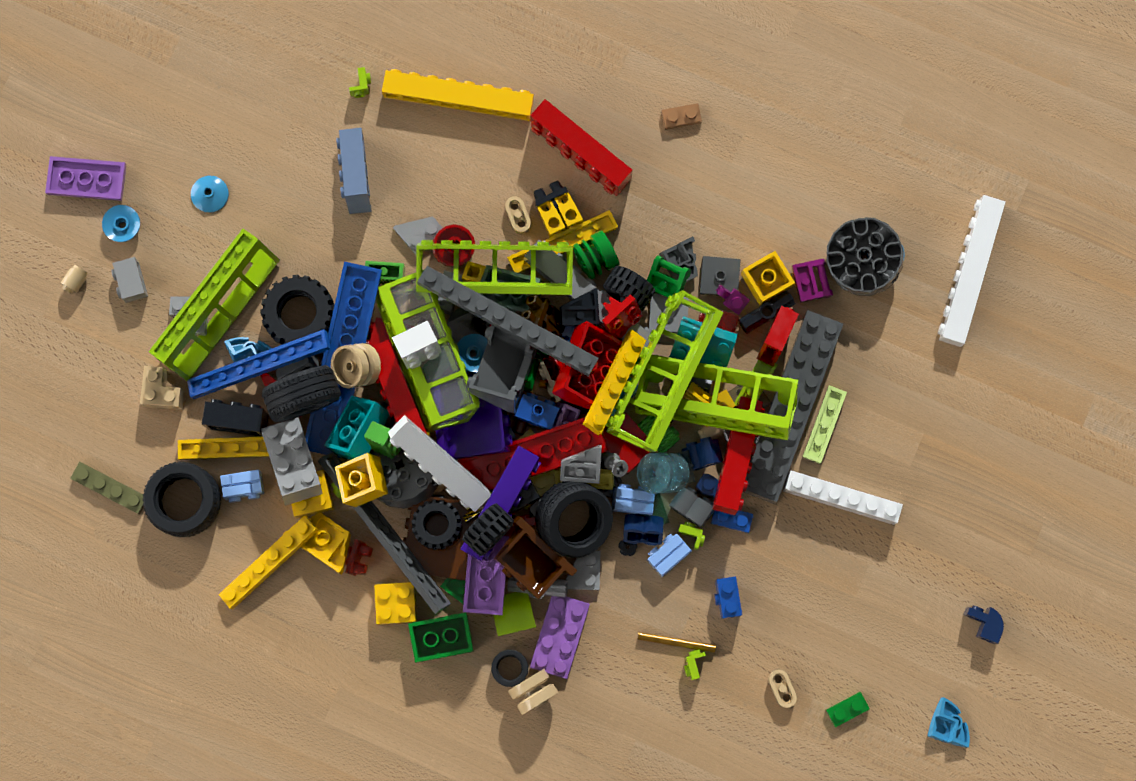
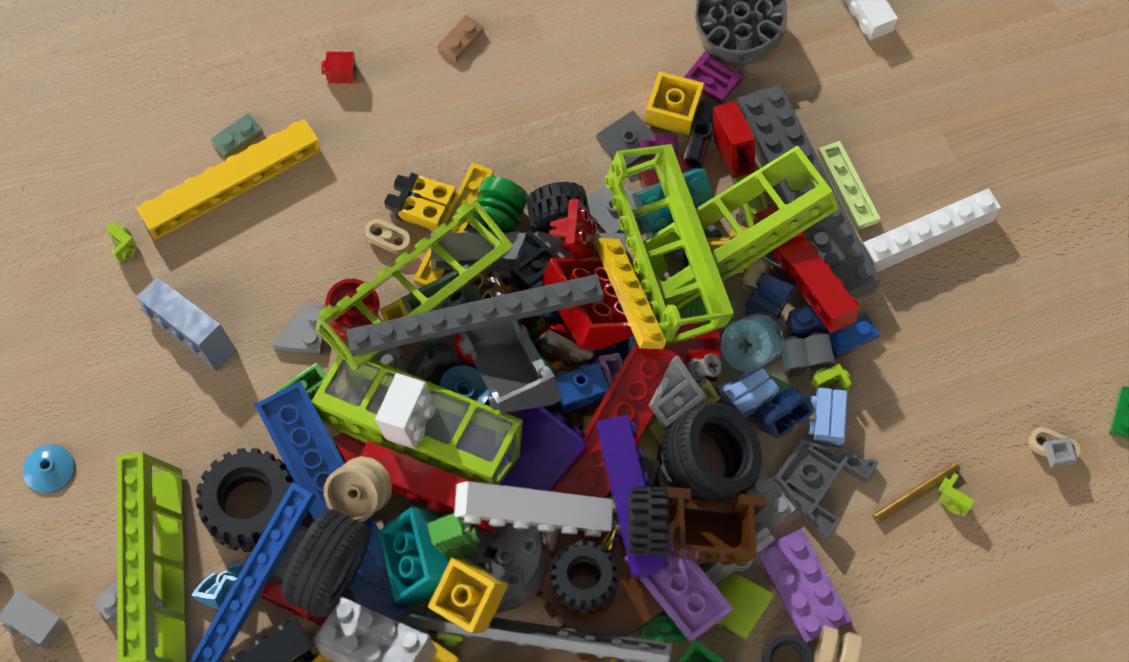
camera: 40 degrees left, 15 degrees down
(487, 67) = (236, 135): none -> sand green plate
(580, 148) = (393, 128): red brick -> none
(587, 74) = (339, 67): none -> red brick
(623, 578) = (811, 473): none -> dark grey wing
(624, 551) = (784, 451): black plate -> none
(663, 283) = (592, 179): green plate -> none
(682, 256) = (581, 156): dark grey slope -> none
(728, 597) = (922, 406): blue brick -> none
(779, 695) = (1060, 452): none -> light grey tile

